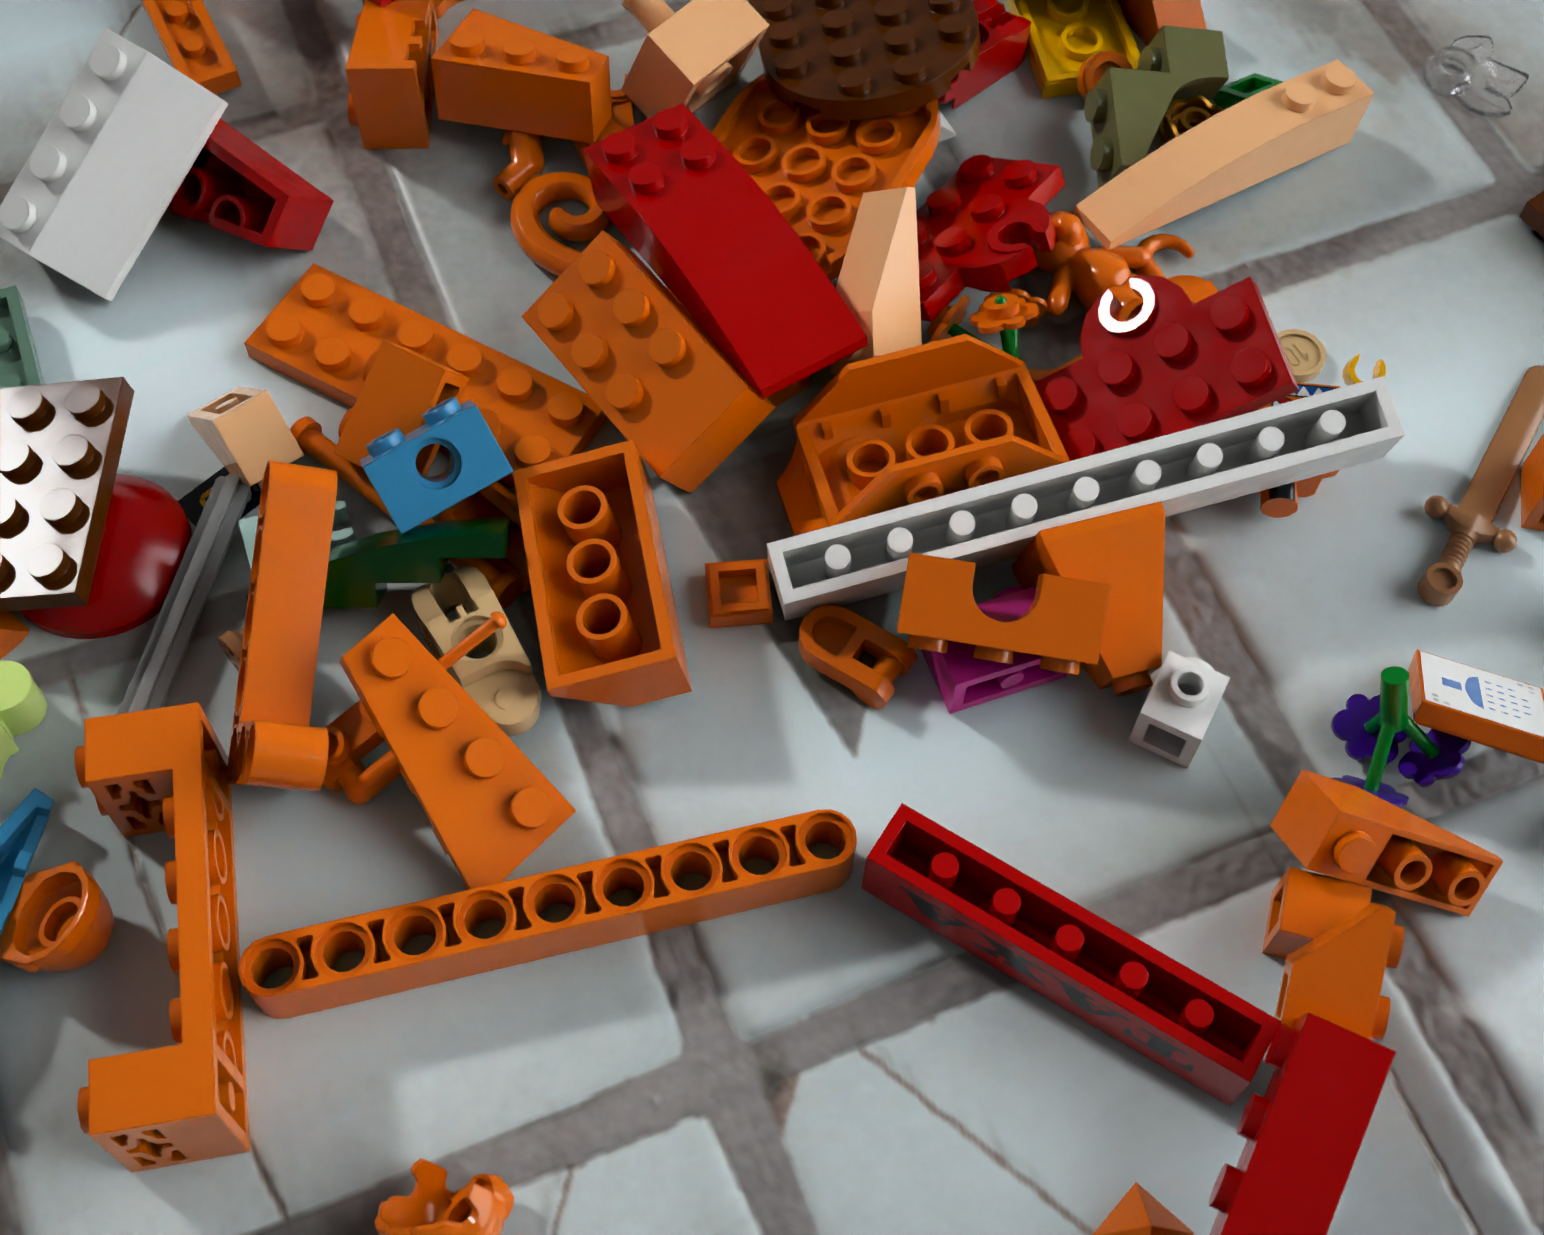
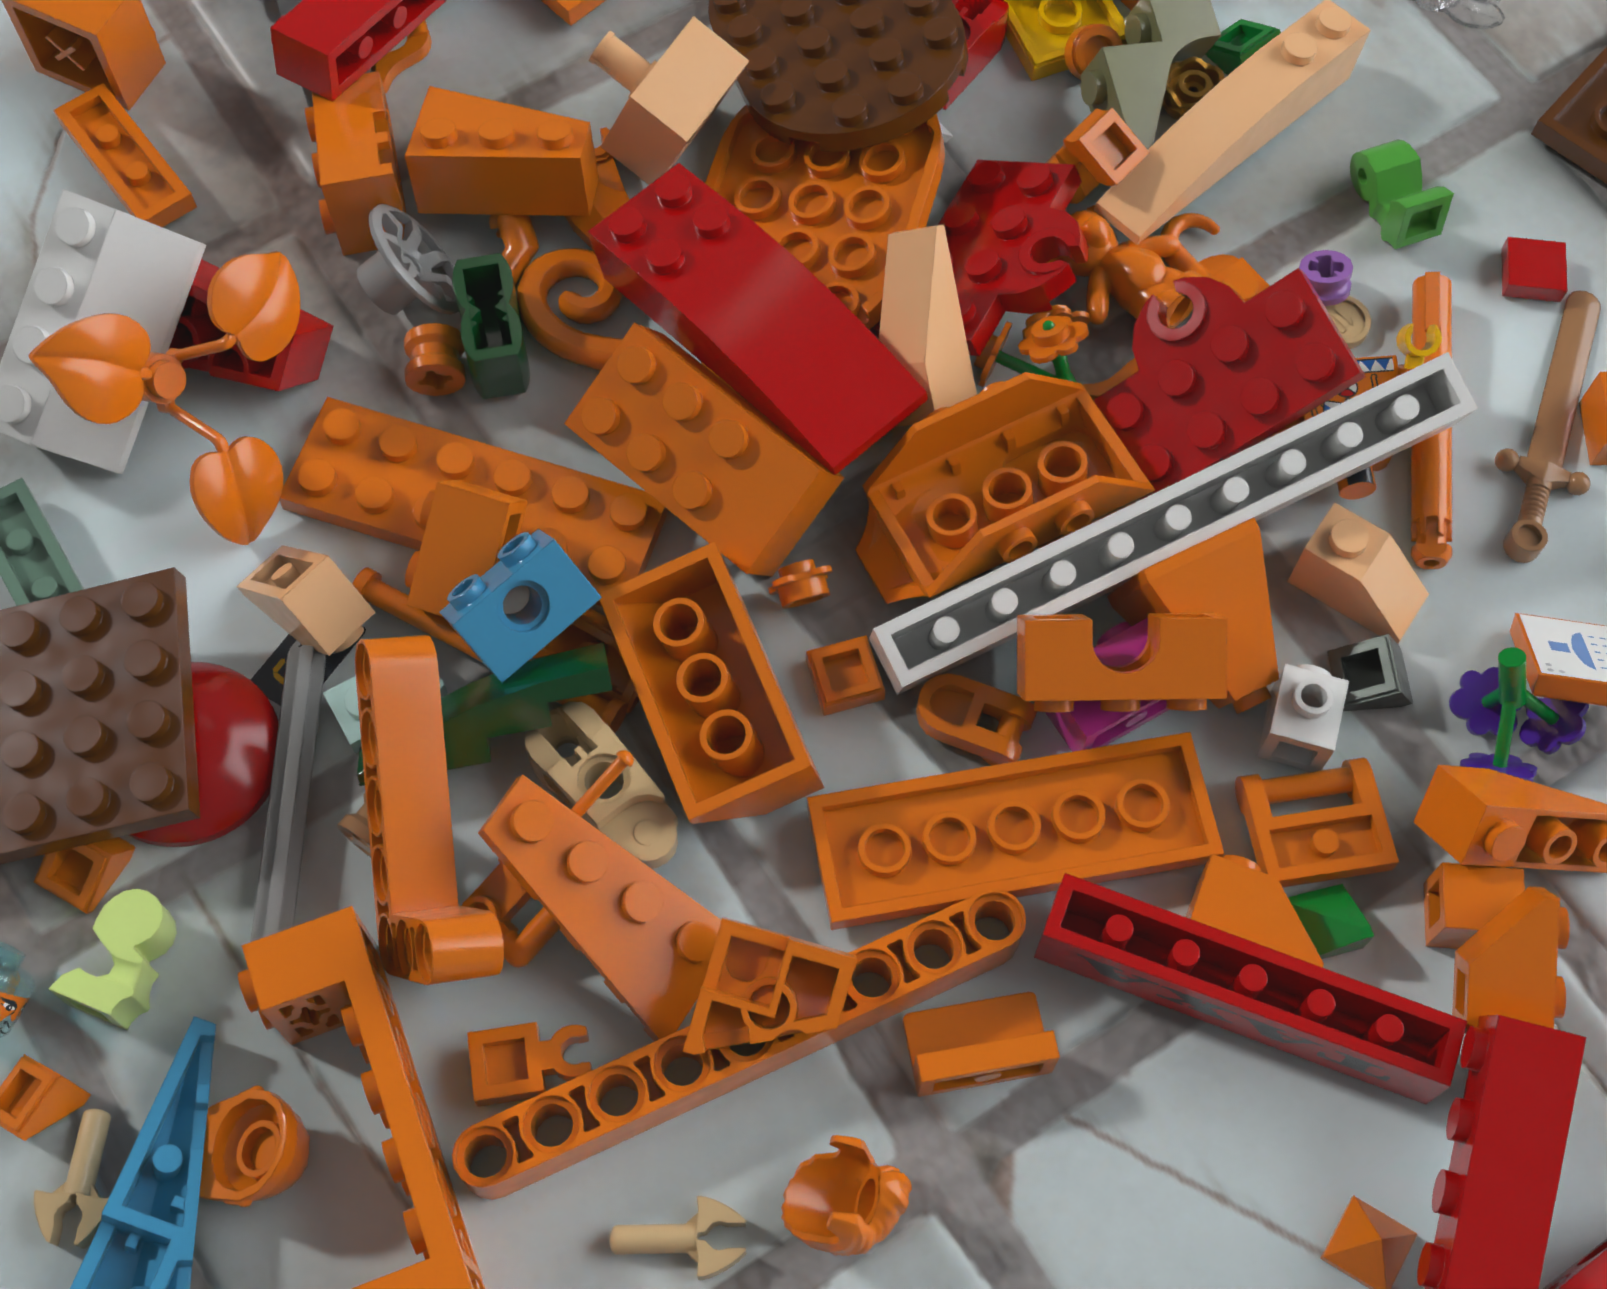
camera: 10 degrees left, 5 degrees up
(96, 188) = (107, 369): none -> orange plant
(332, 888) = (513, 1061): none -> orange plate
(406, 163) = (399, 270): none -> light grey wheel
(420, 246) = (434, 359): none -> orange wheel
(453, 1091) = (684, 1238): none -> tan bar
(477, 223) = (491, 326): none -> dark green brick
(581, 859) = (767, 988): none -> orange slope
(615, 1080) = (844, 1199): none -> orange hair
(714, 501) = (801, 584): none -> orange plate
(787, 961) = (978, 1043): none -> orange panel
(864, 757) = (1012, 829): none -> orange plate
(1086, 871) = (1251, 905): none -> orange slope
(1088, 158) = (1101, 150): none -> orange leg
(1162, 910) = (1332, 920): none -> green slope
(1173, 830) = (1323, 841): none -> orange plate
(1259, 683) = (1374, 674): none -> pearl dark grey slope
(1265, 584) = (1360, 574): none -> light nougat slope
(1290, 310) = (1329, 275): none -> medium lavender bush
(1363, 482) = (1433, 456): none -> orange piece
(1371, 237) = (1392, 184): none -> bright green leg
(1498, 338) = (1534, 269): none -> red tile

